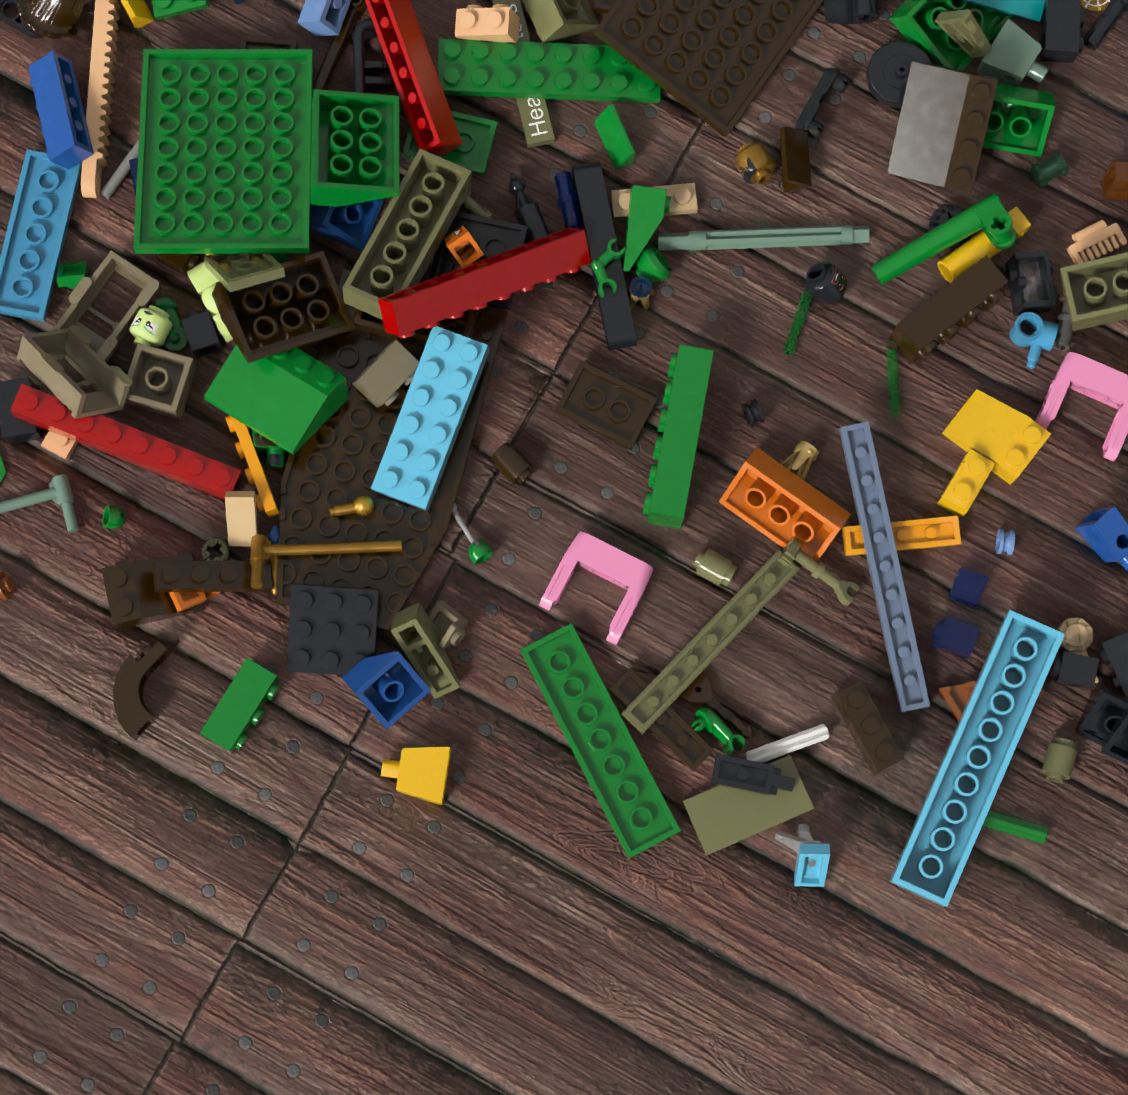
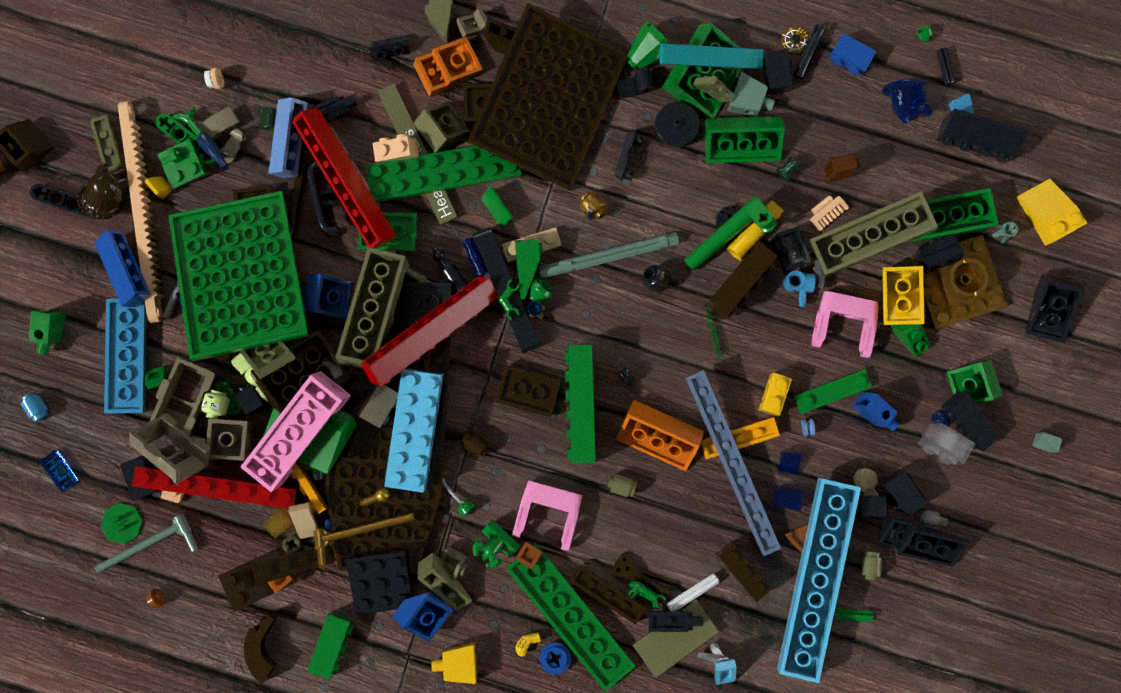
camera: 10 degrees left, 5 degrees up
(113, 517) = (218, 536): green hinge -> none
(205, 515) = (278, 522): none -> clear yellow brick
(260, 380) = (294, 430): none -> bright pink plate
(353, 147) = (323, 256): green slope -> none
(463, 246) = (409, 307): orange leg -> none
(516, 608) = (498, 541): none -> green piece
(525, 763) = (525, 641): none -> yellow arm
(558, 634) = (528, 555): none -> dark orange plate
(571, 784) = (552, 667): none -> blue gear
(709, 643) = (629, 536): olive tile -> none
(793, 551) = (671, 465): olive piece -> none
(794, 159) = (619, 198): dark brown panel -> none
(797, 328) = (643, 306): green piece -> none
(802, 457) = (664, 400): pearl gold piece -> none
(942, 126) = (712, 156): slope -> none
(997, 434) = (788, 357): yellow slope -> none
(1051, 499) = (832, 391): none -> green plate

